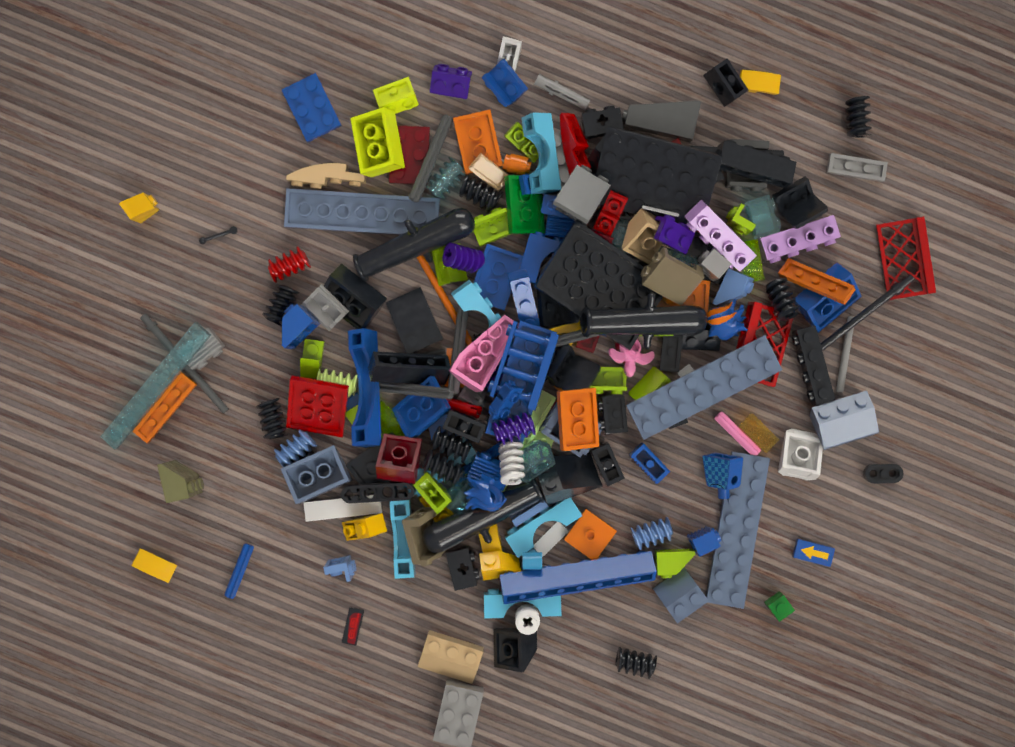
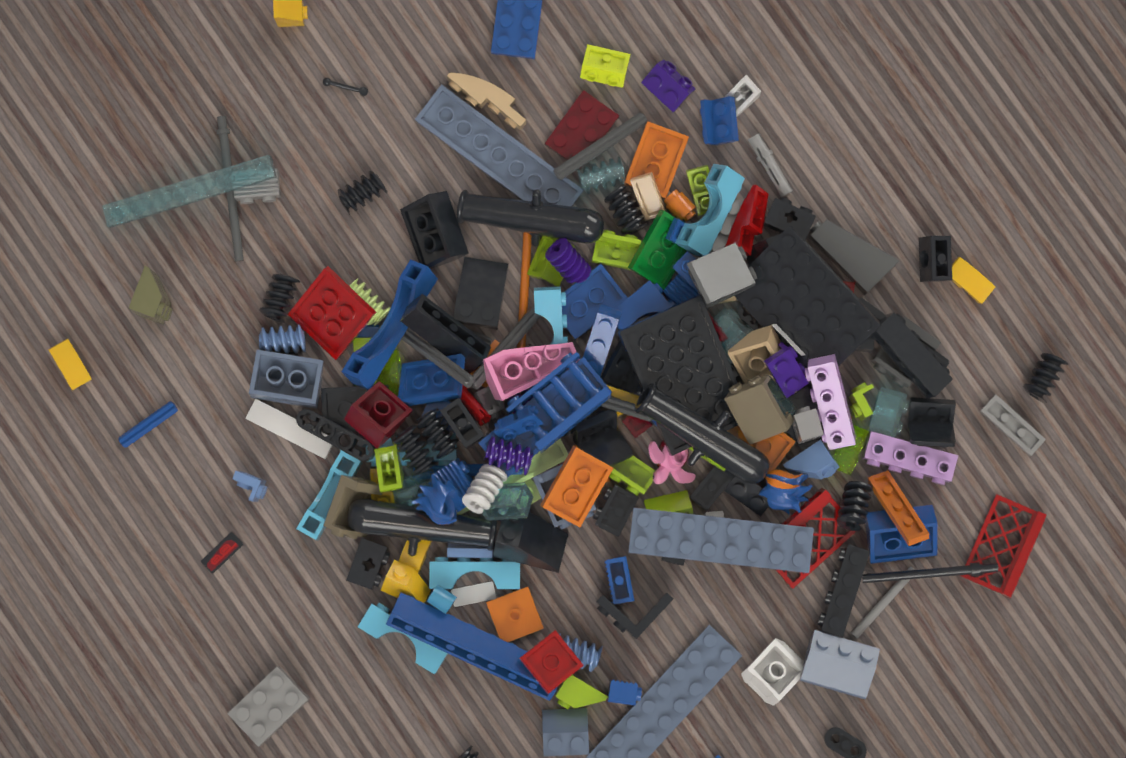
camera: 30 degrees right, 5 degrees down
(164, 407) = (183, 218): orange plate -> none
(288, 264) = (395, 158): red piece -> none
(297, 325) = (365, 222): blue slope -> none
(312, 358) = (357, 264): lime slope -> none
(325, 307) = (402, 222): light grey hinge -> none
(364, 527) = (299, 461): yellow slope -> none
(377, 142) = (558, 97): neon yellow brick -> none
(450, 657) = (297, 645): tan slope -> none
(513, 649) = (366, 677): black slope -> none
(527, 626) = (392, 648): white piece -> none
(607, 464) = (577, 554): black brick -> none
(610, 213) = (739, 311): red slope -> none
(640, 554) = (551, 662): none -> red plate
(686, 483) = (624, 623): none -> black bracket
(723, 472) = (685, 637): blue torso -> none
(737, 434) = (725, 610): bright pink axle -> none
(758, 432) = (747, 622): clear yellow plate -> none

